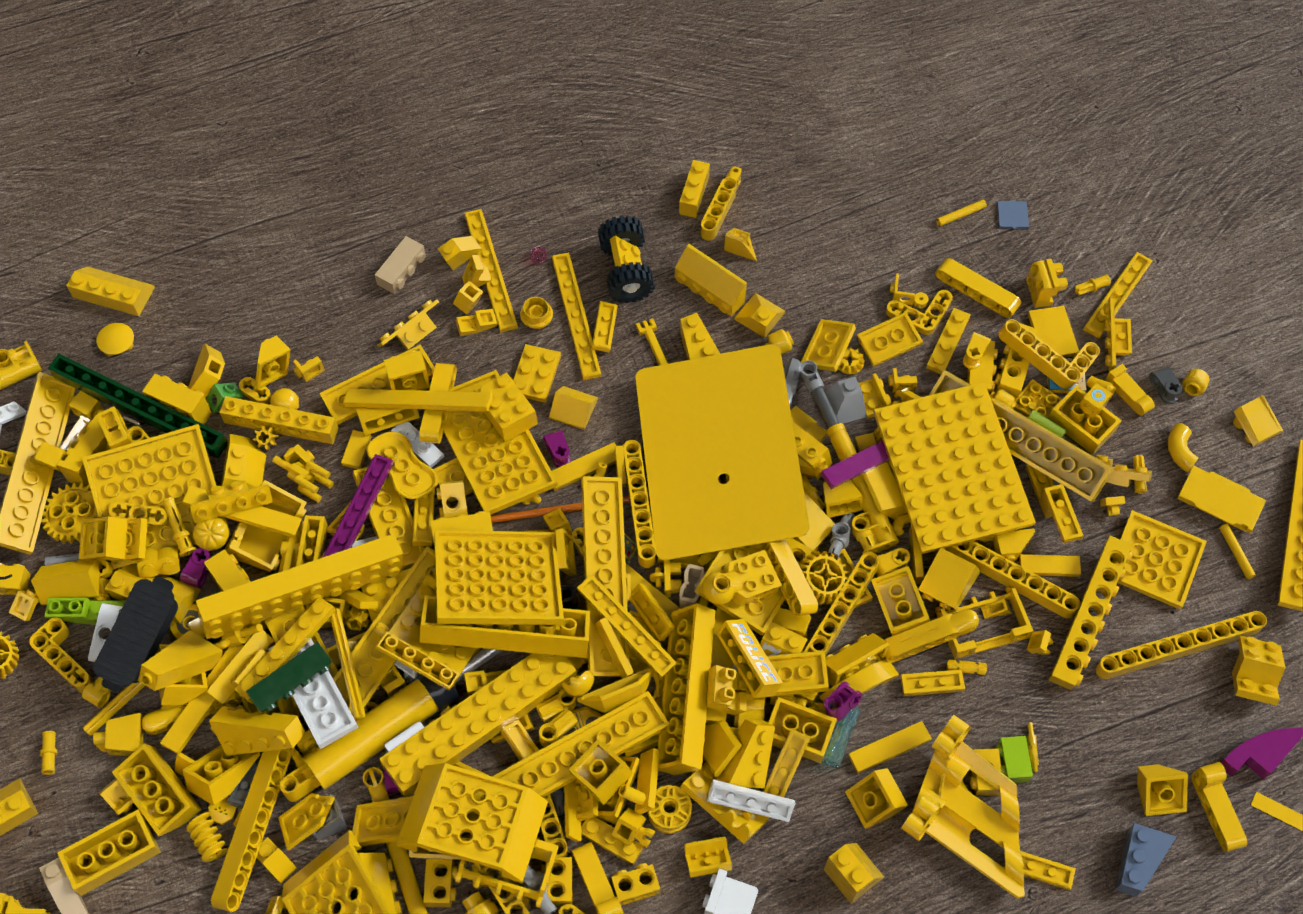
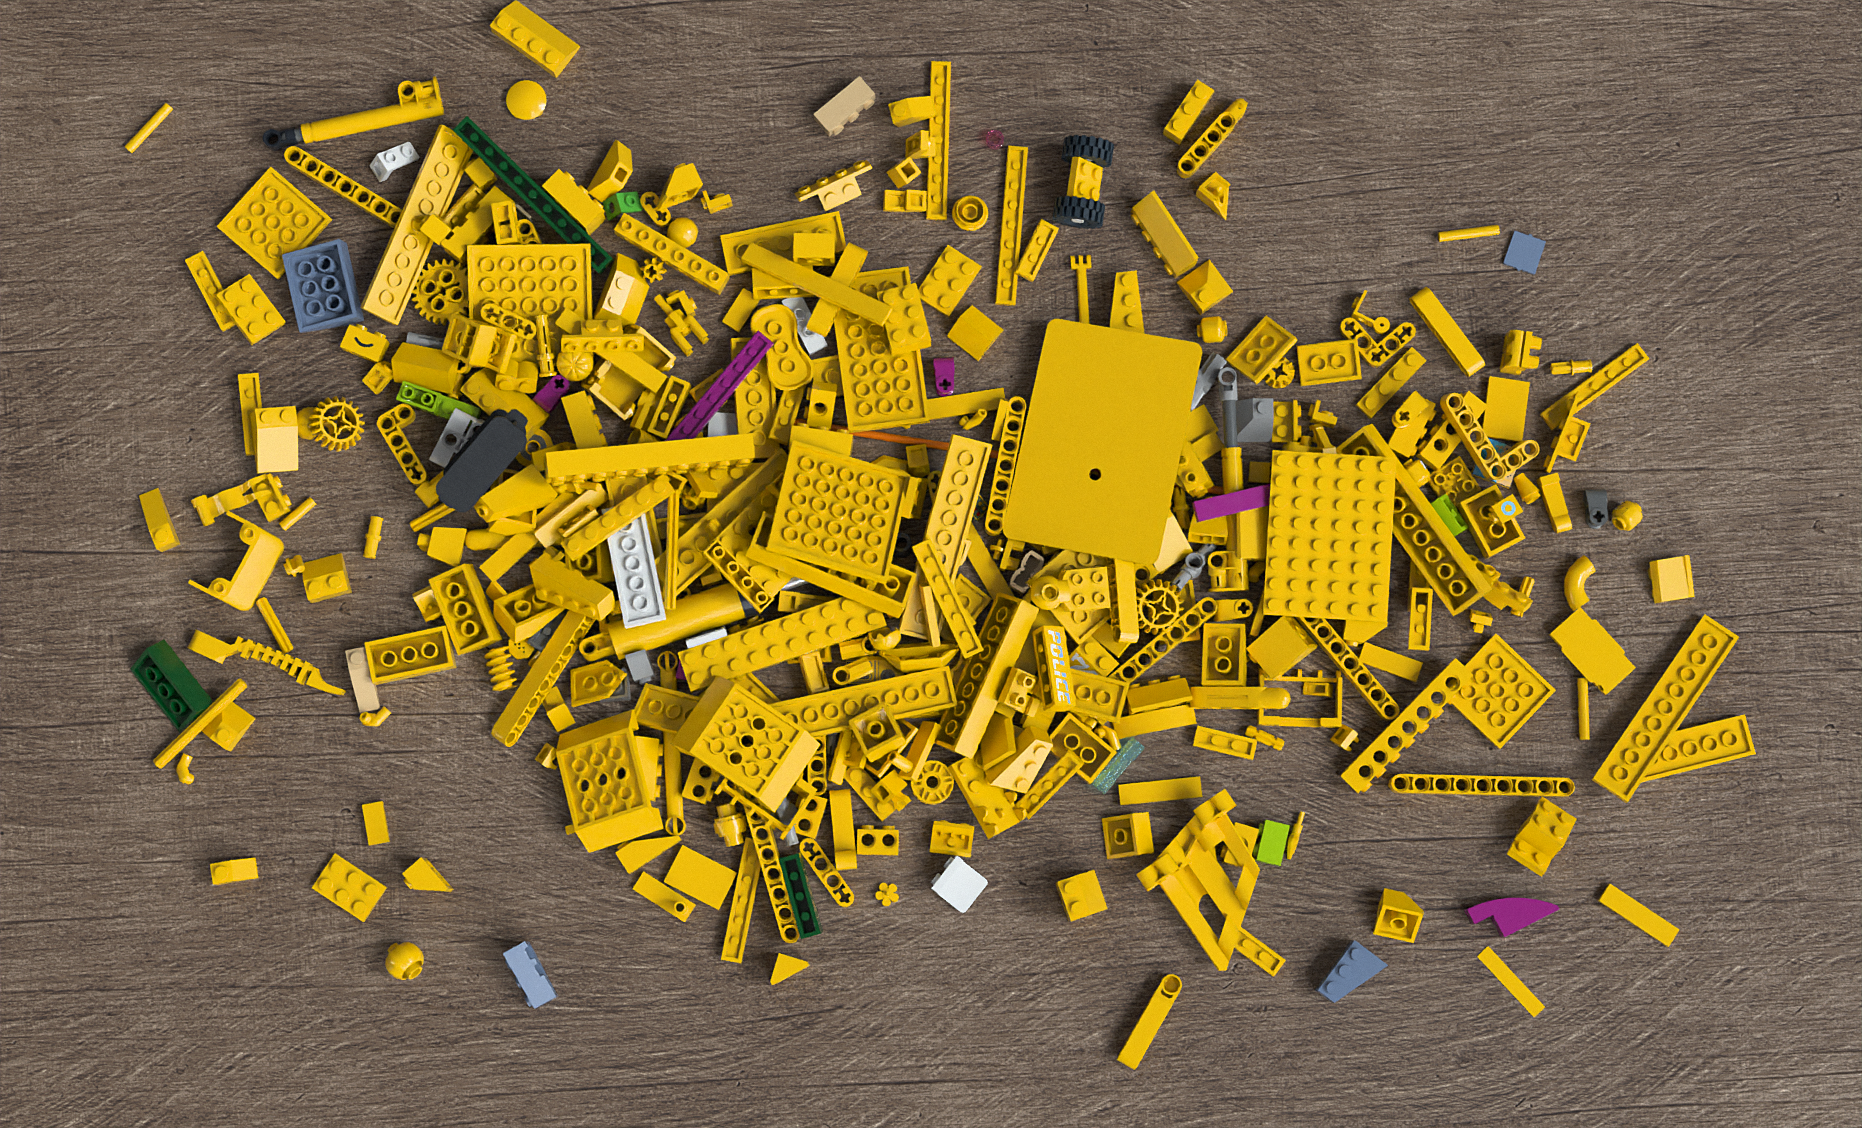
camera: 15 degrees right, 20 degrees up
(288, 677) = (614, 551): dark green brick -> none
(346, 788) = (640, 666): none -> light grey slope
(651, 612) = (979, 585): yellow tile -> none
(750, 800) = (1007, 803): white tile -> none
(844, 699) = (1129, 734): magenta piece -> none
(1217, 806) = (1443, 950): yellow beam -> none

